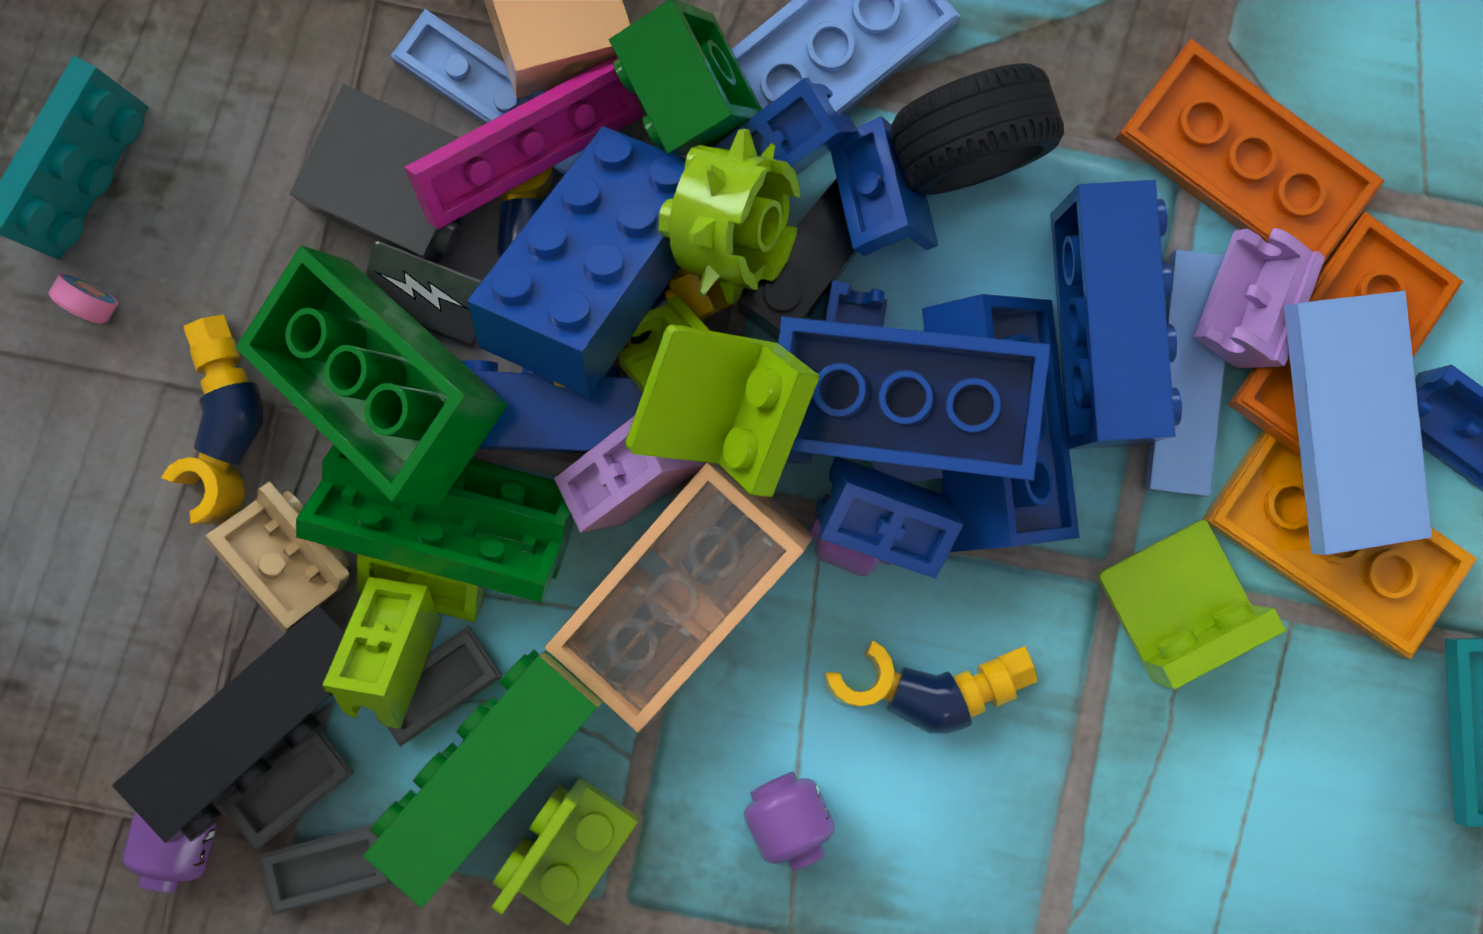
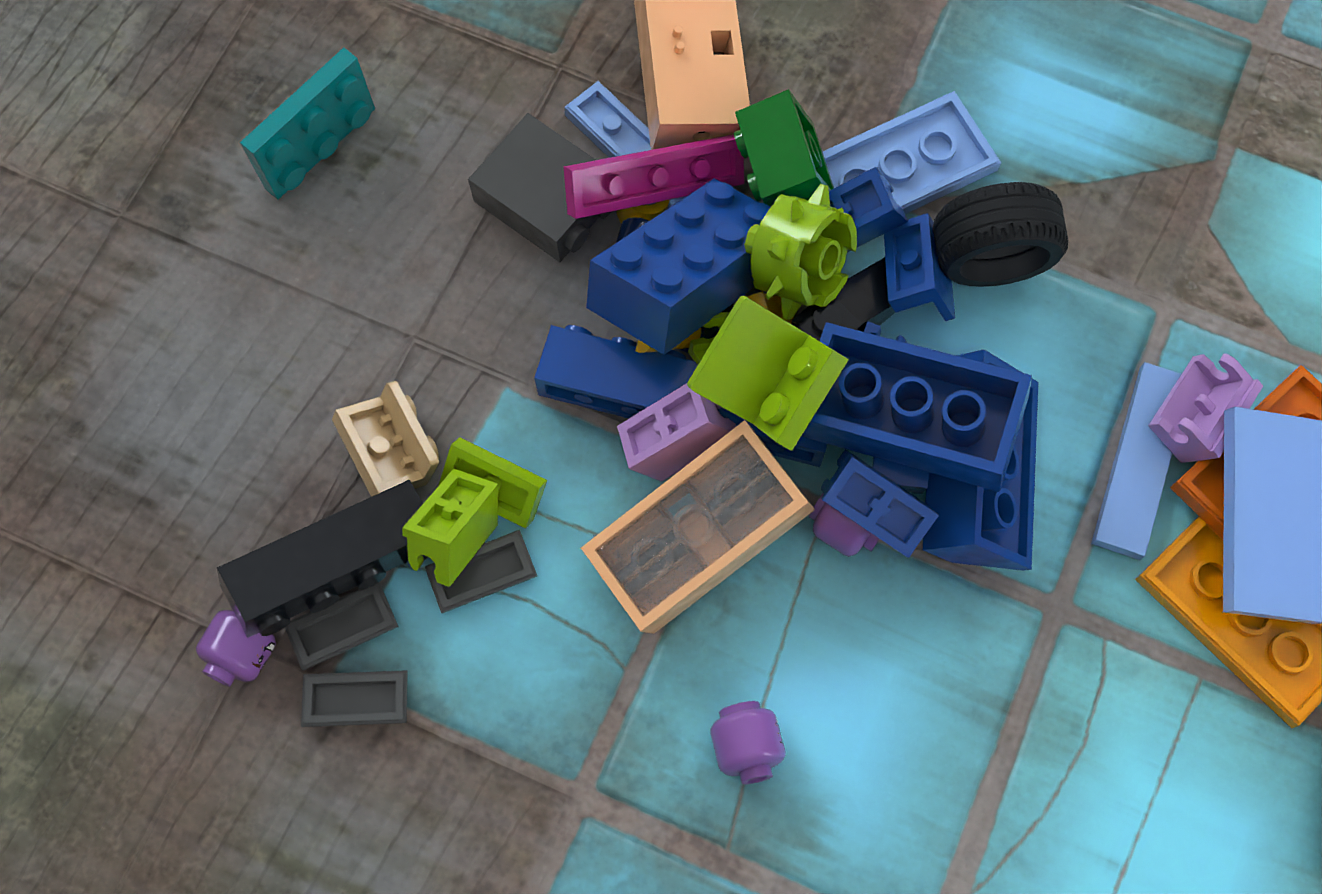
camera: 15 degrees right, 15 degrees down
(82, 298) = (290, 225): bright pink tile -> none
(227, 426) = (373, 338): yellow piece -> none
(370, 377) = (497, 316): green brick -> none
(425, 290) = (546, 274): flat silver slope -> none
(479, 780) = (511, 636): green brick -> none
(488, 531) = (522, 433): green brick -> none
(574, 847) = (555, 723): lime bracket -> none
(938, 701) = (884, 669): piece -> none
(1114, 315) = (1086, 395): blue brick -> none
(1185, 606) = (1110, 636): lime bracket -> none
(1247, 154) = (1211, 304): orange tile -> none

